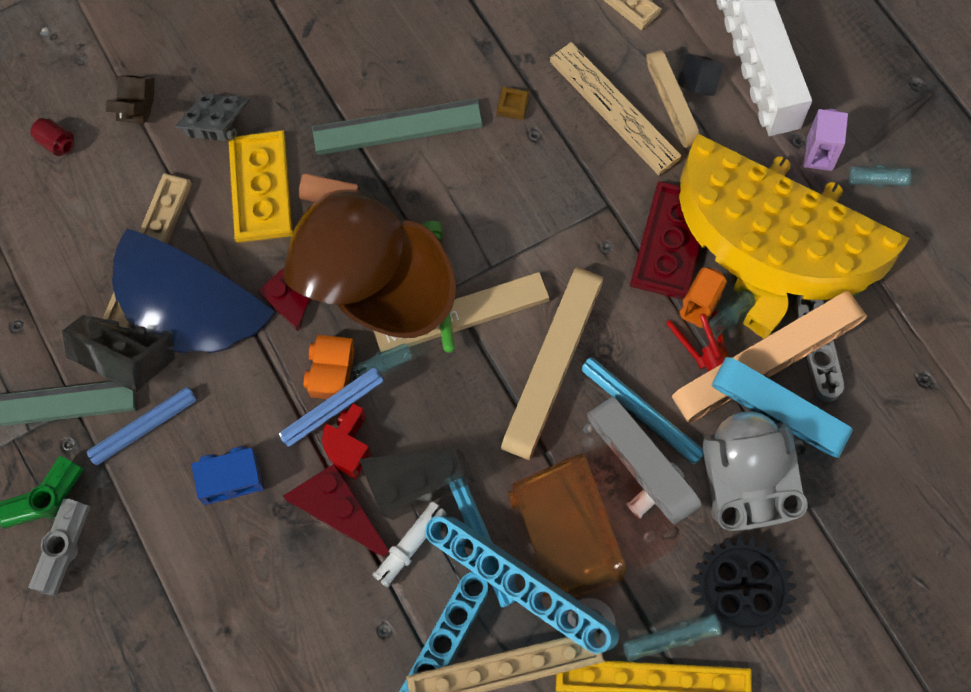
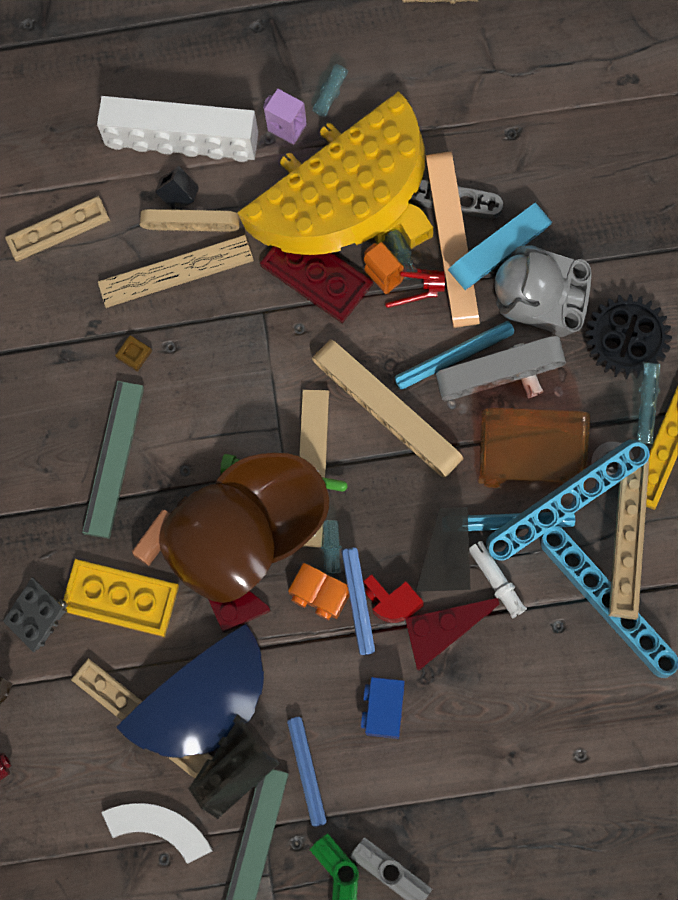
camera: 65 degrees left, 5 degrees up
(49, 308) = (161, 822): none -> white tile

